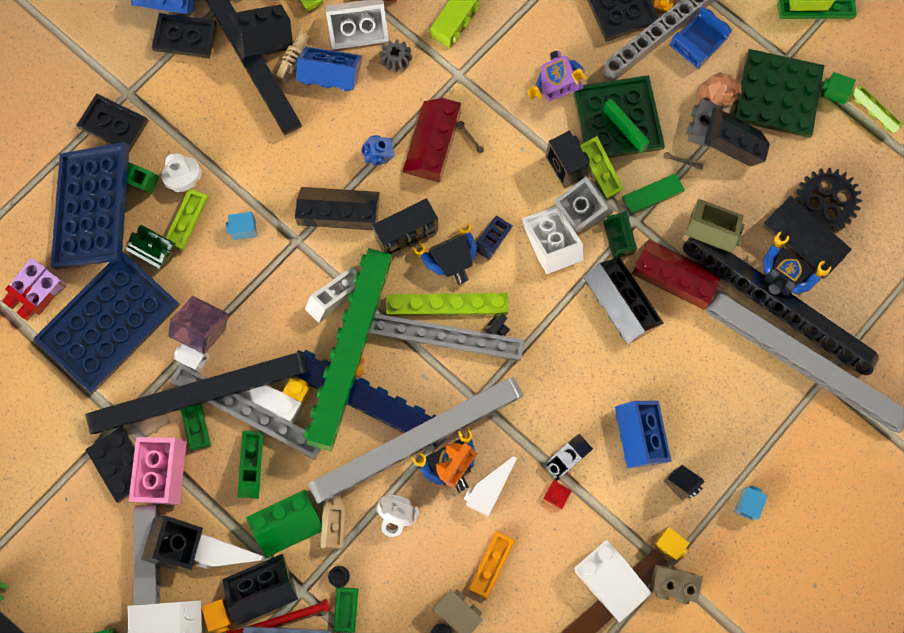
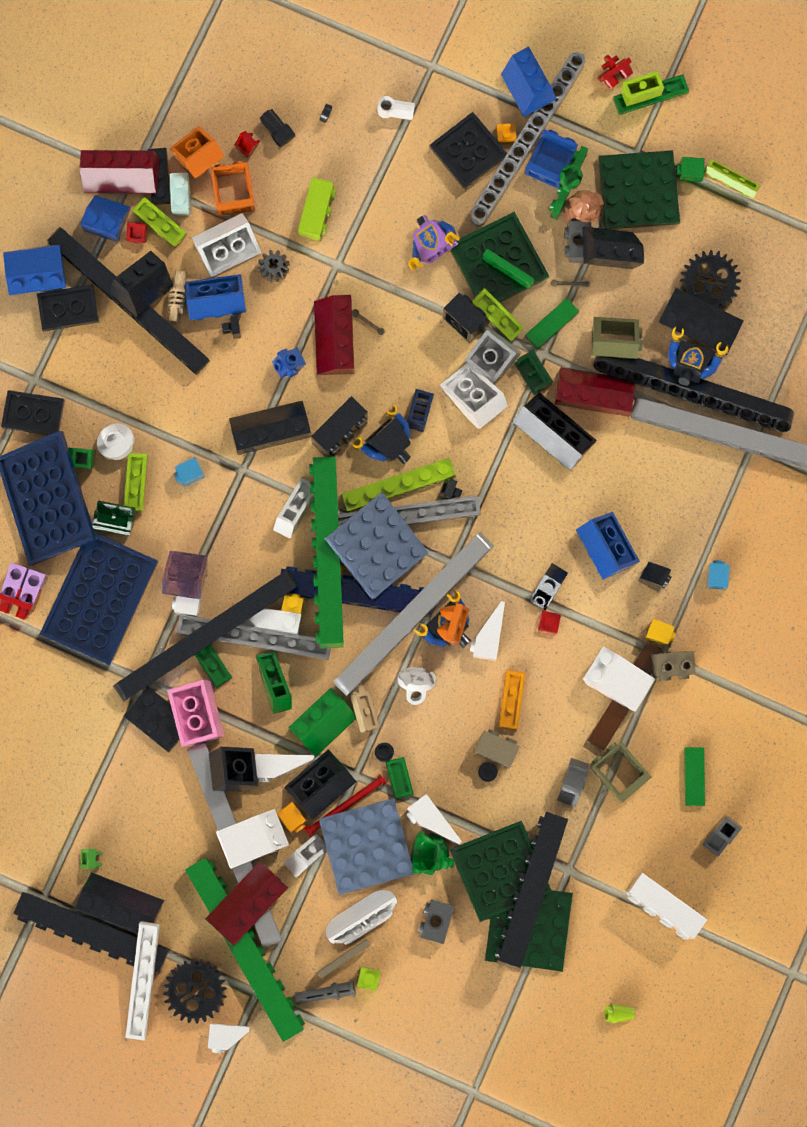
camera: 20 degrees left, 5 degrees up
(335, 101) = (232, 327): none -> black tile
(402, 357) = (376, 545): none -> sand blue plate
(714, 58) = (570, 179): none -> green plate

